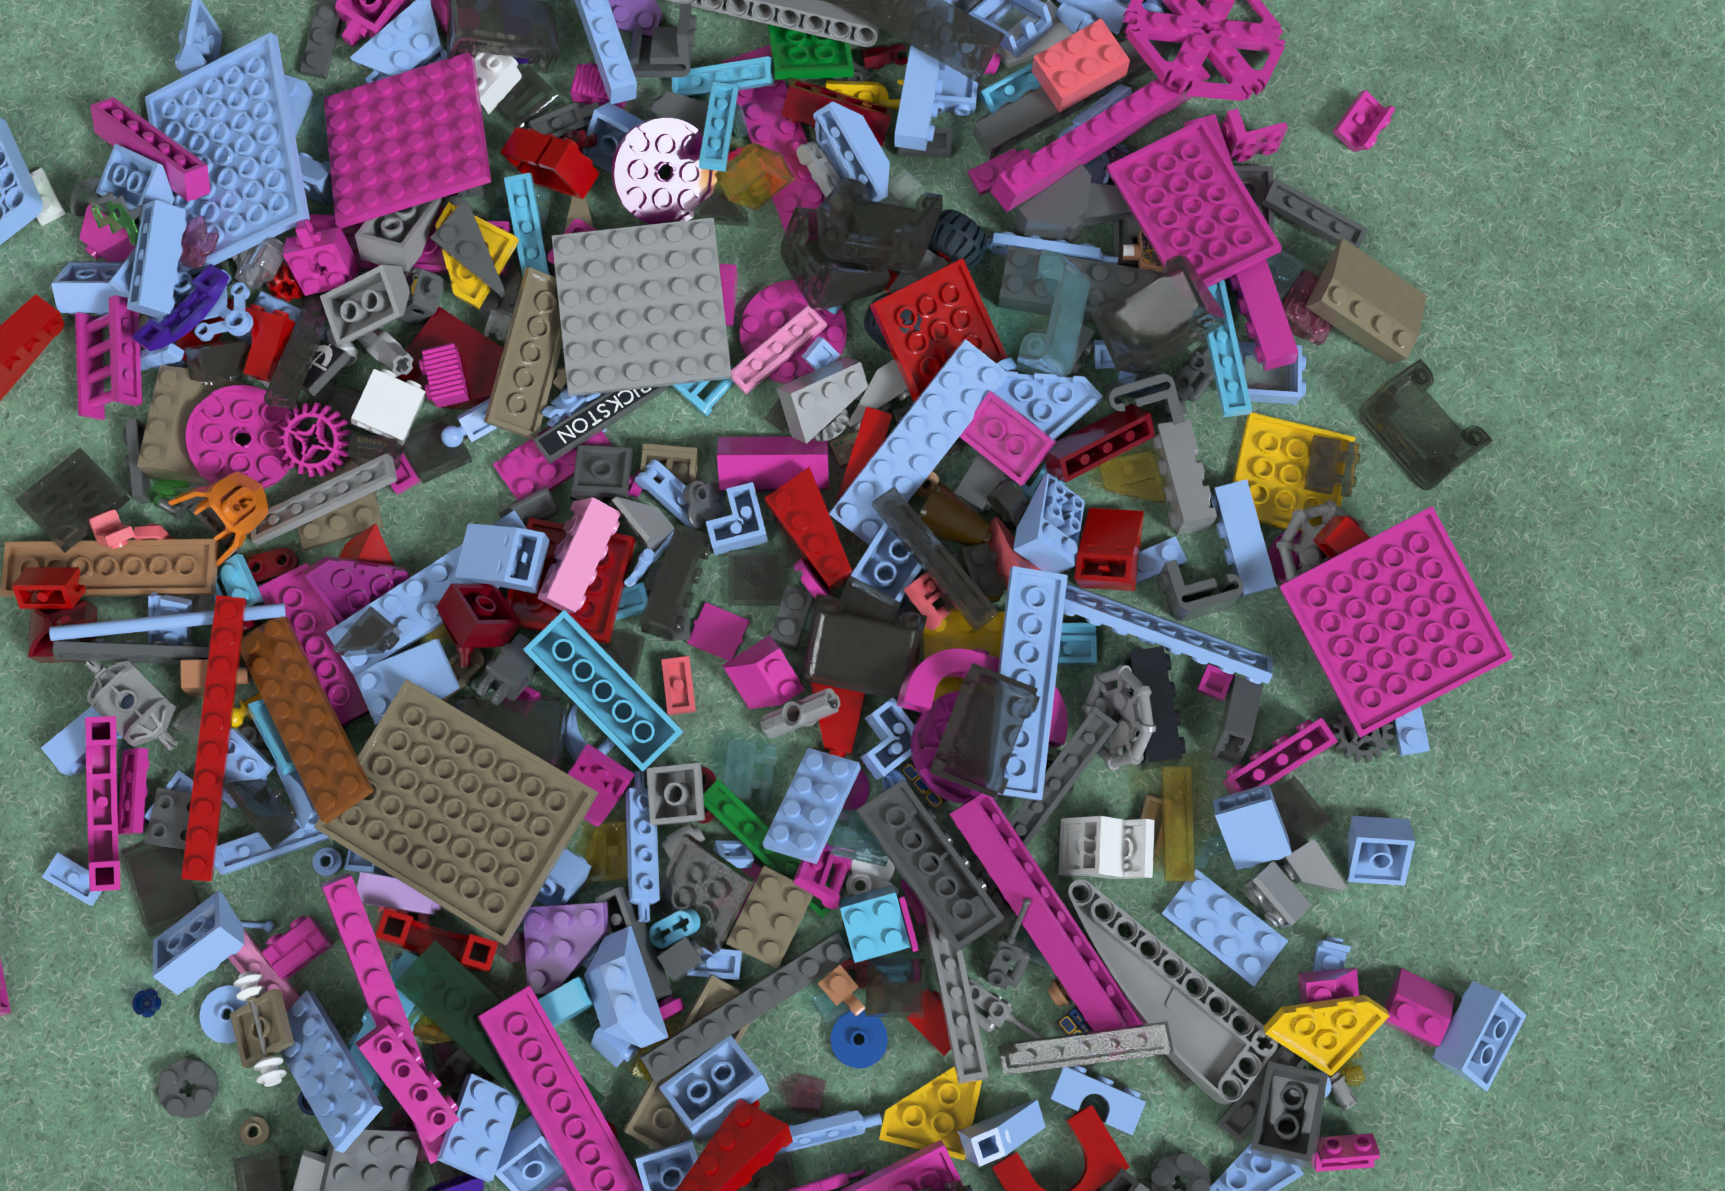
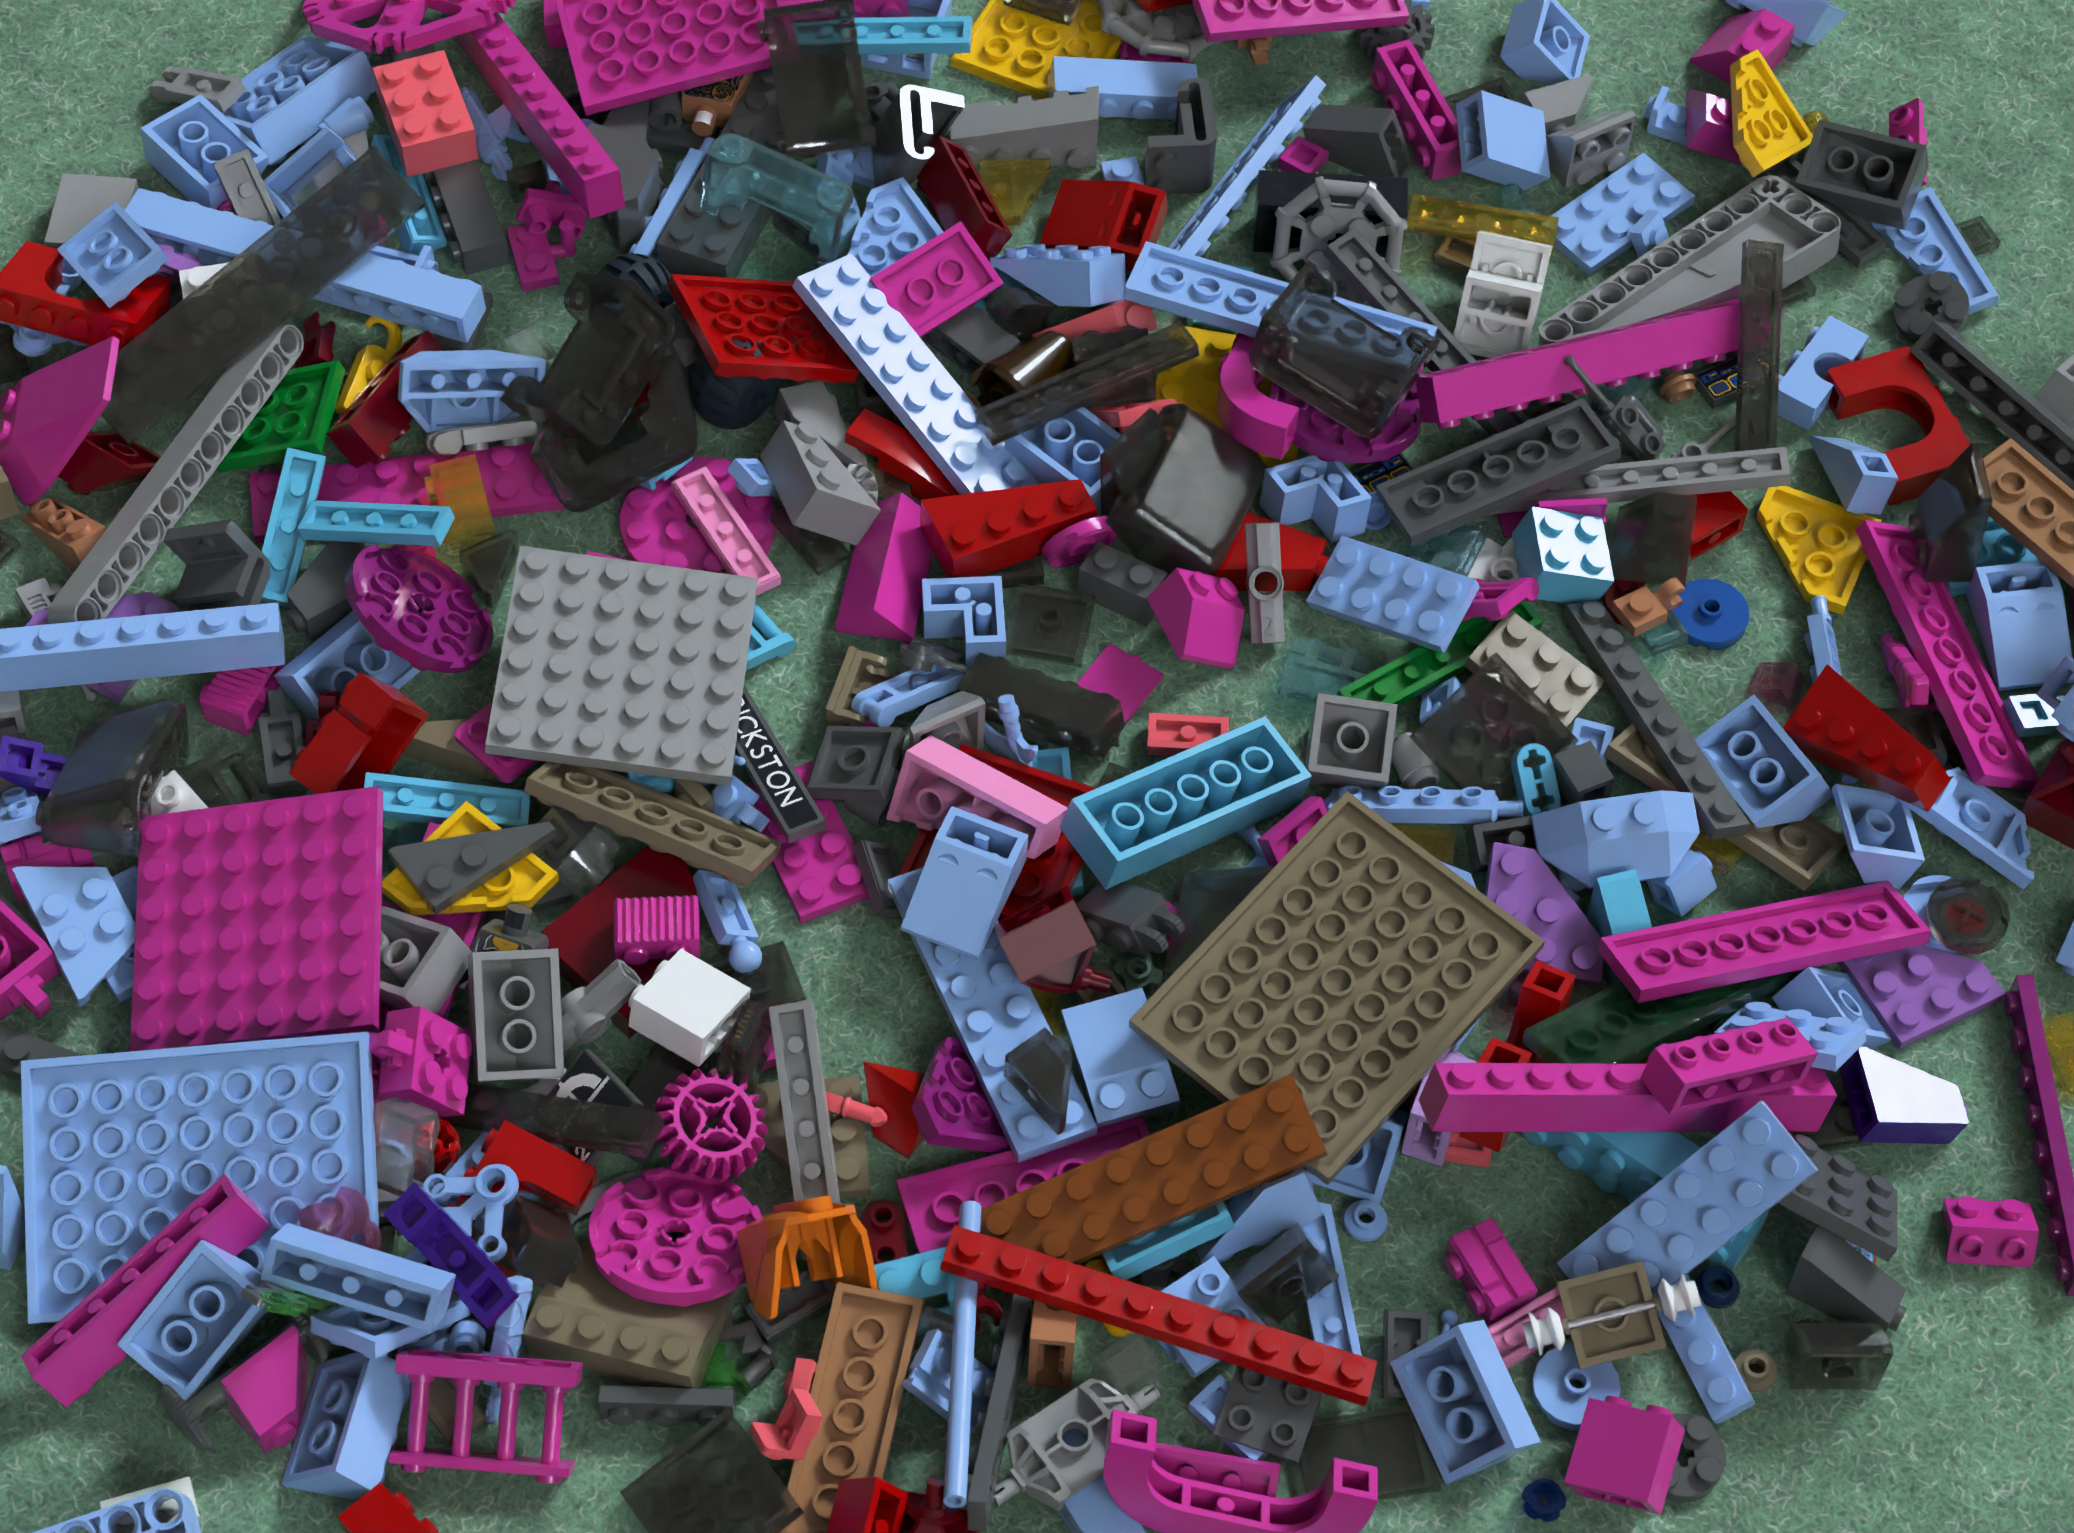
camera: 85 degrees left, 20 degrees down
(166, 1049) = (1625, 1454): none -> dark pink brick
(241, 898) = (1401, 1333): none -> dark grey plate
(254, 1101) = (1708, 1362): none -> light blue plate
(350, 523) = (847, 1107): none -> coral piece
(1201, 954) = (1648, 232): none -> light blue plate

